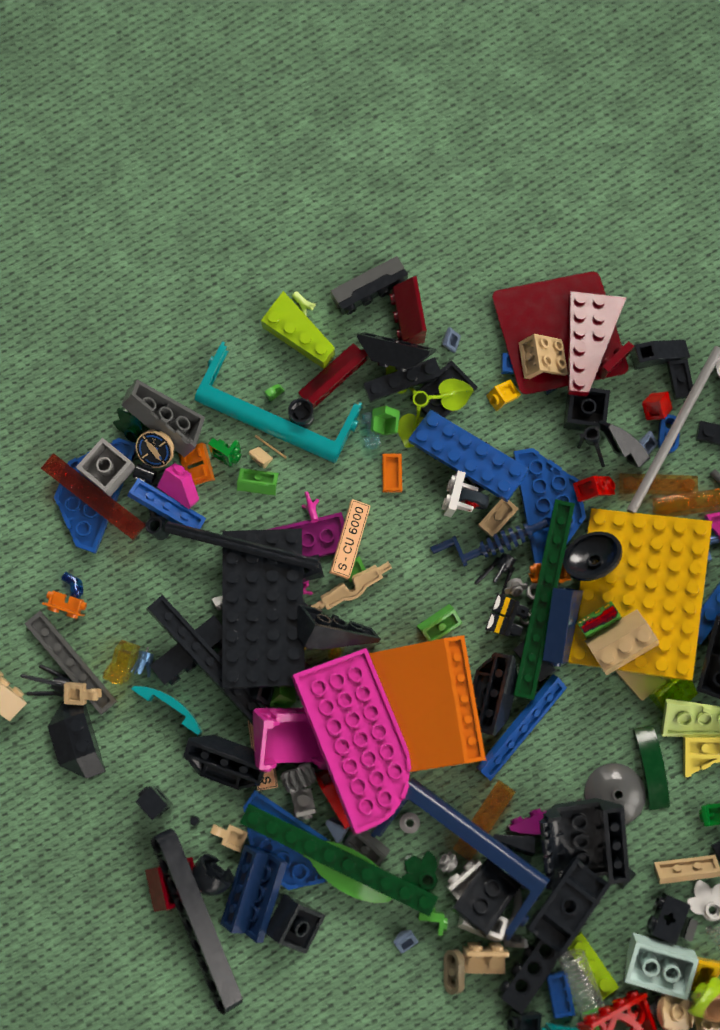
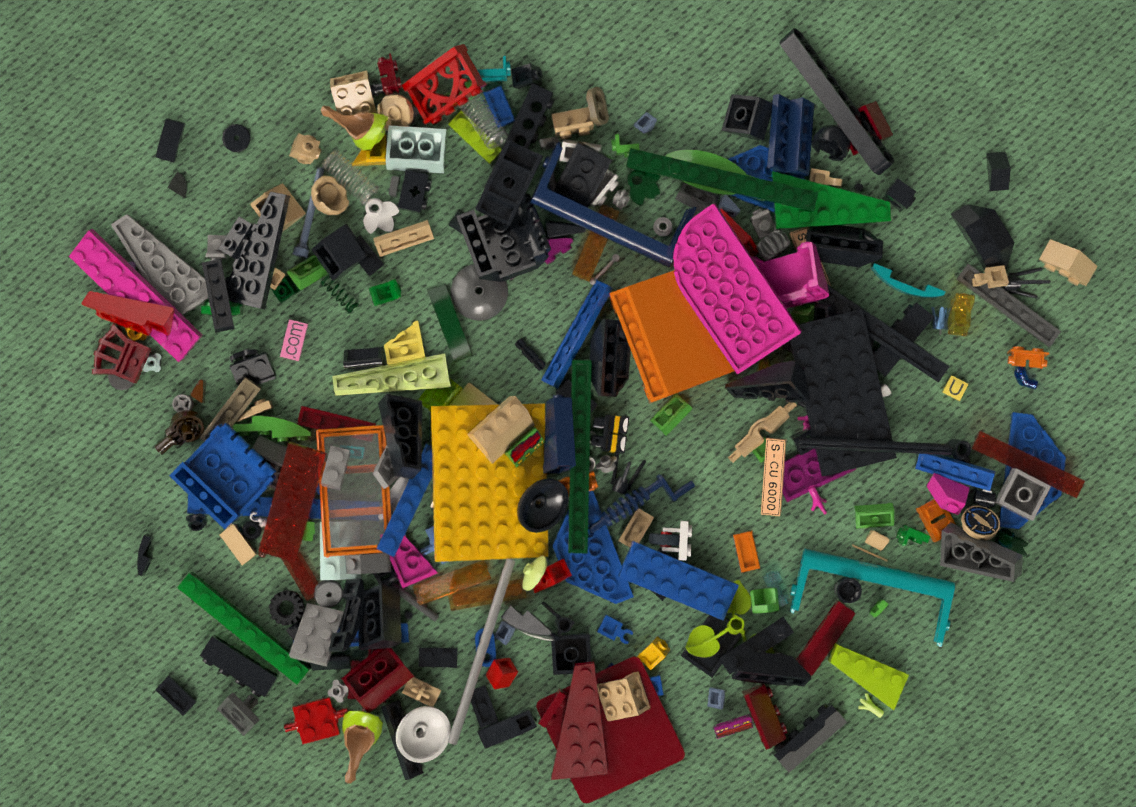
camera: 170 degrees right, 10 degrees up
(44, 806) = (998, 171): none -> black slope
(146, 590) = (955, 388): none -> light yellow tile
(227, 805) = (832, 206): none -> green wing
(441, 312) = (733, 726): none -> slope
(465, 799) = (615, 258): none -> light grey hinge
(540, 426) = (611, 628): none -> blue plate
(573, 716) = (530, 354): none -> black axle
(610, 493) = (534, 572): none -> yellowish green dish

